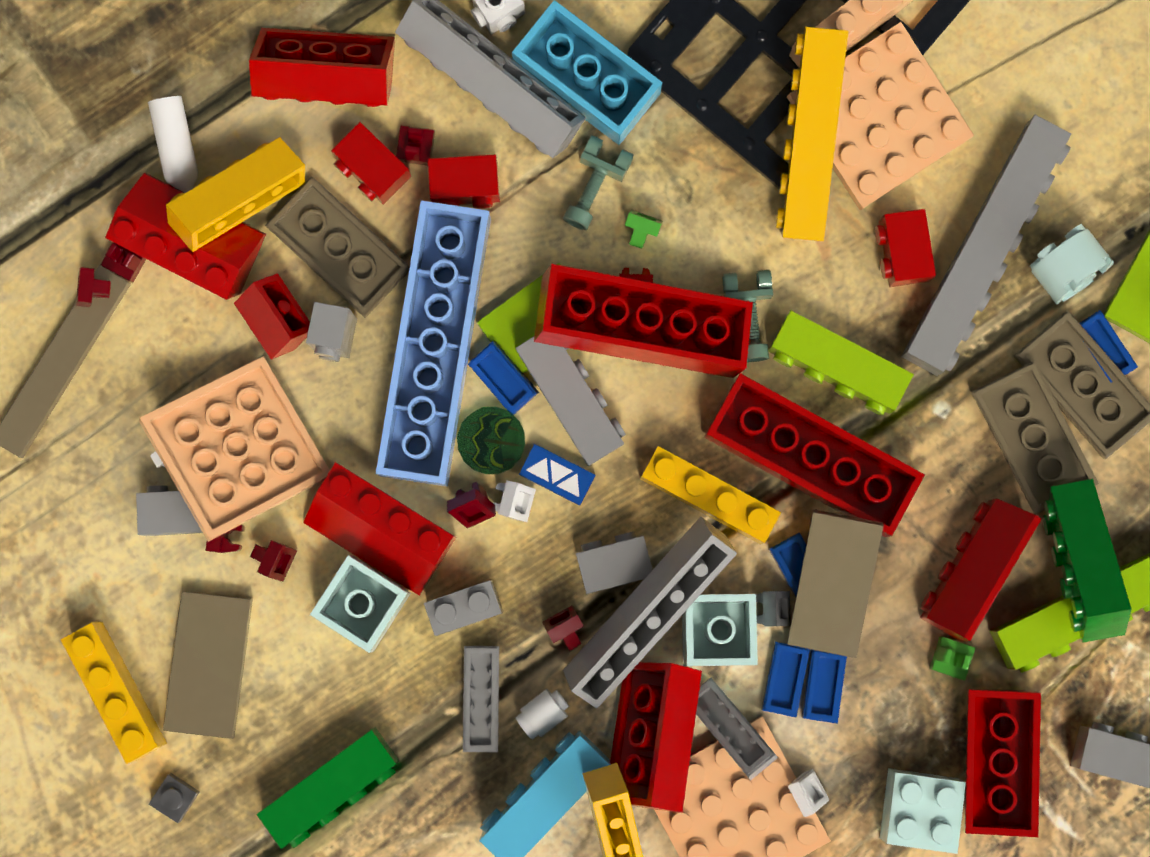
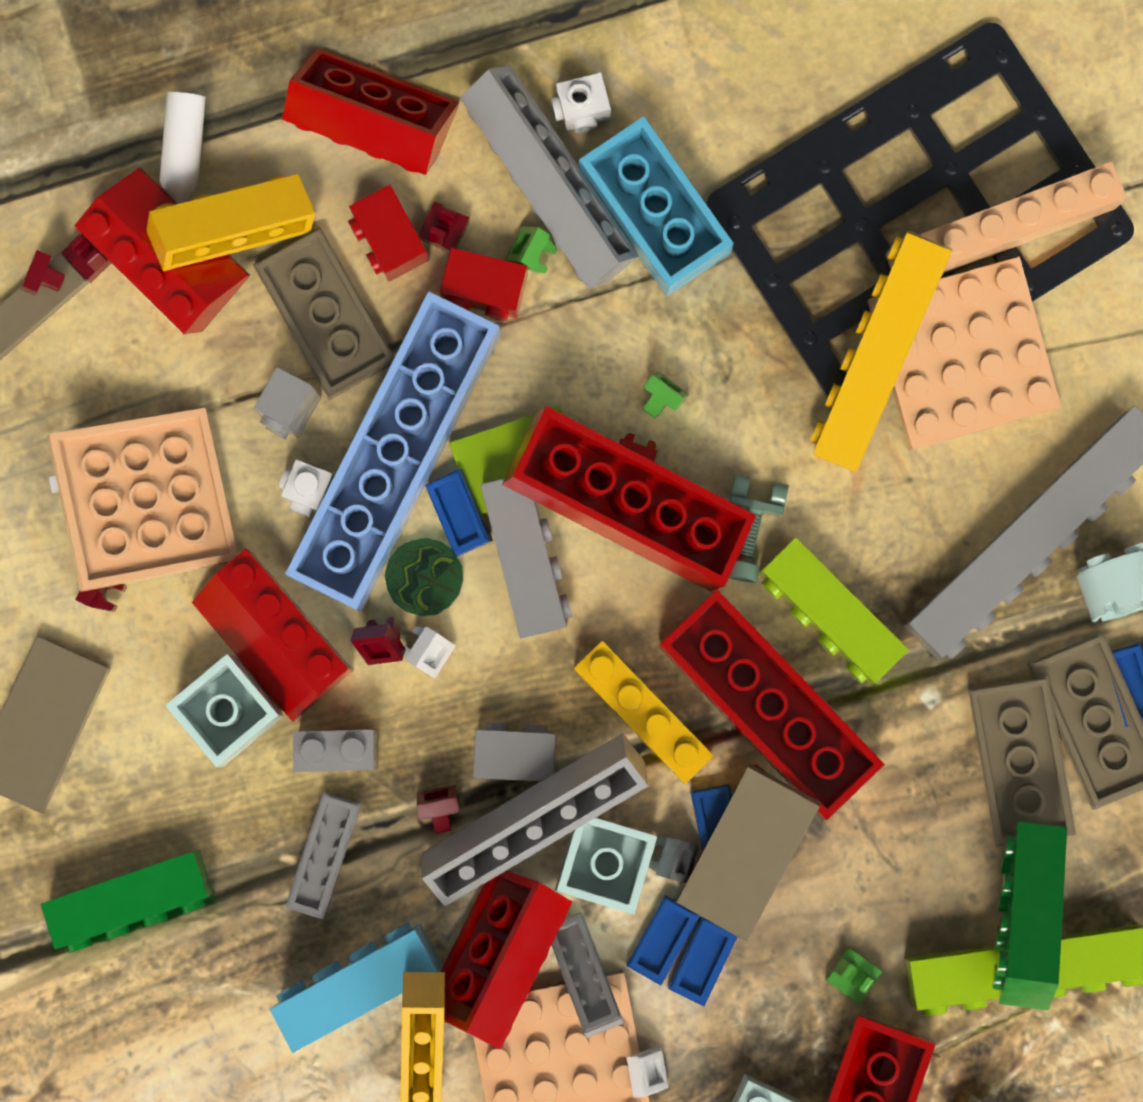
camera: 20 degrees right, 0 degrees up
(164, 513) = (43, 544): light grey brick -> none
(273, 315) = (229, 367): red brick -> none
(274, 559) = (147, 633): dark red tile -> none
(368, 396) = (304, 487): none -> white brick
(491, 139) = (528, 247): none -> bright green tile
(542, 713) = (385, 893): white brick -> none
(557, 474) = (484, 637): blue tile -> none
(579, 215) = (598, 360): sand green bar -> none
(905, 248) = (945, 508): red brick -> none
(979, 568) = (912, 886): red slope -> none

